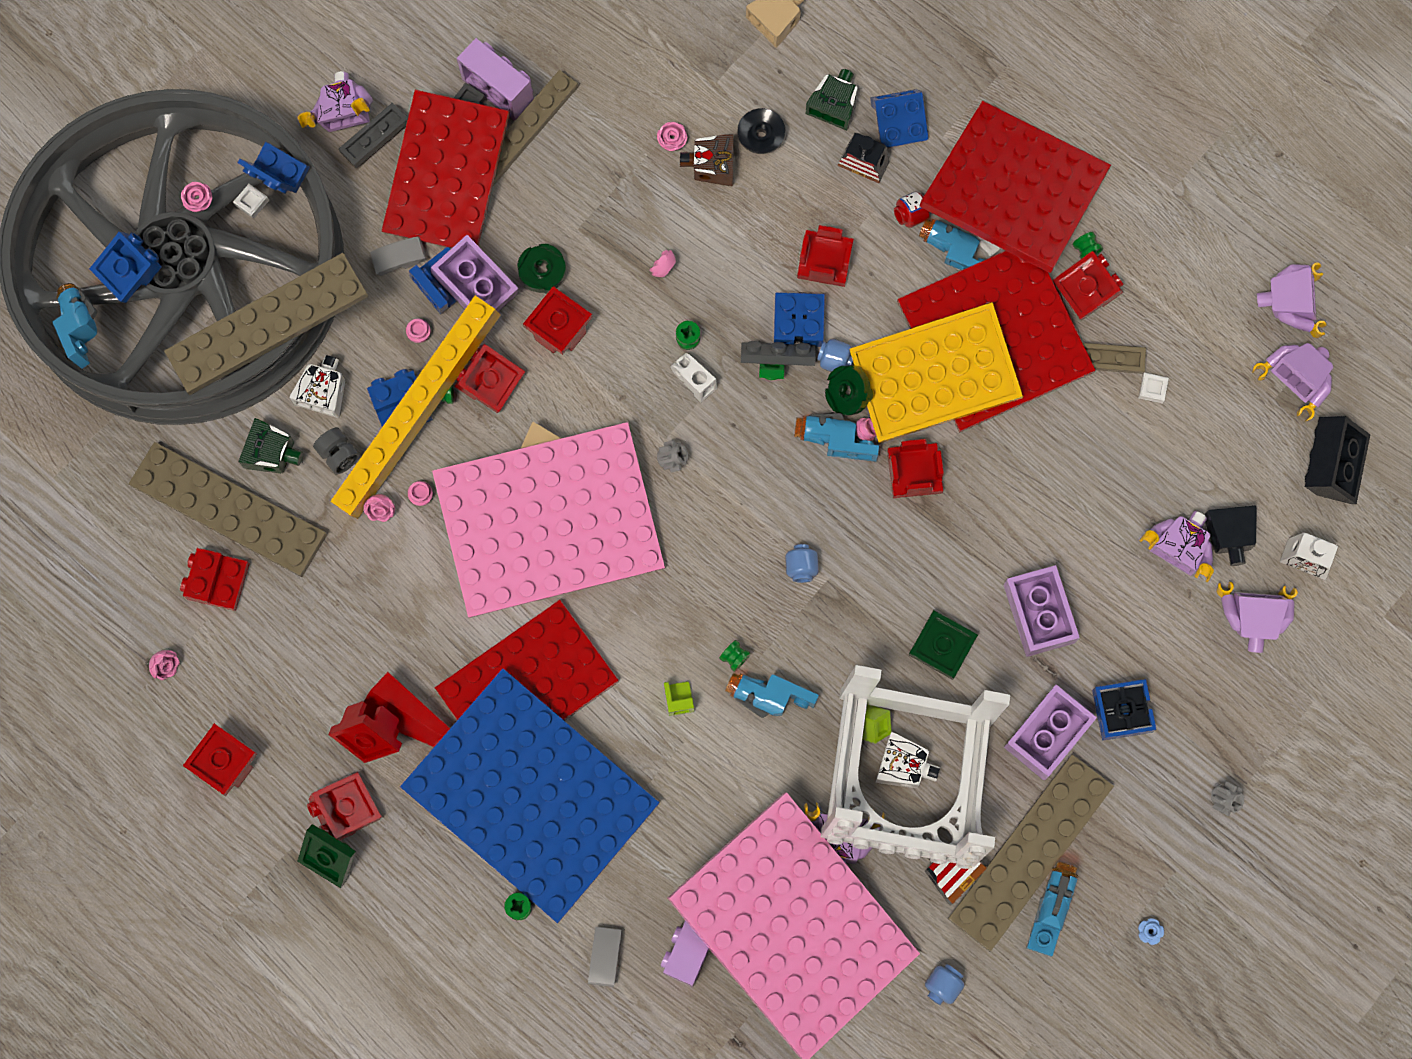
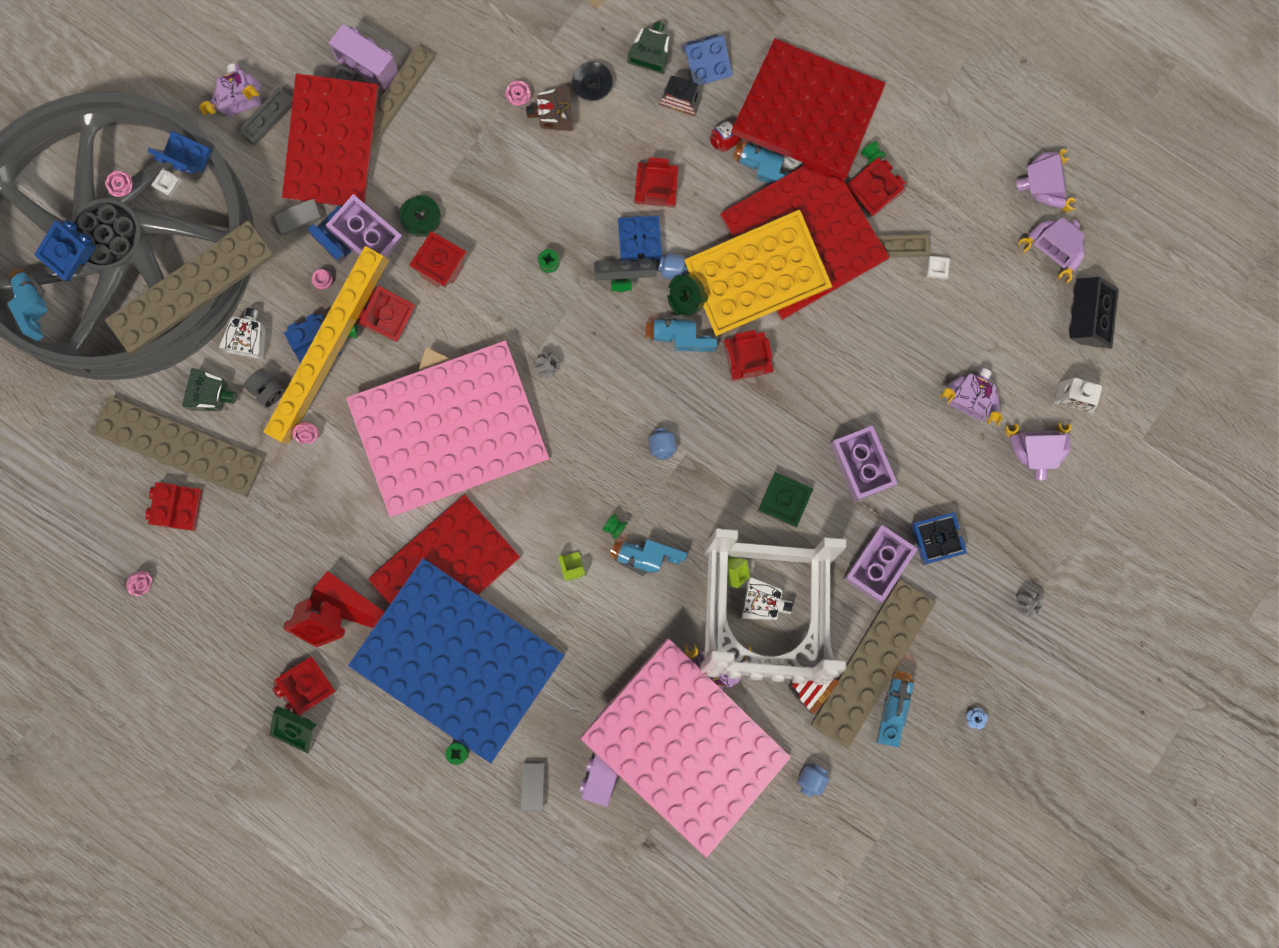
camera: 10 degrees left, 5 degrees up
(221, 760) = (195, 659): red panel -> none
(420, 493) = (338, 416): bright pink plate -> none
(663, 264) = (522, 203): bright pink plate -> none
(694, 376) = (557, 295): white leg -> none
(865, 429) = (704, 326): bright pink plate -> none
(1232, 531) = (1014, 381): black torso -> none

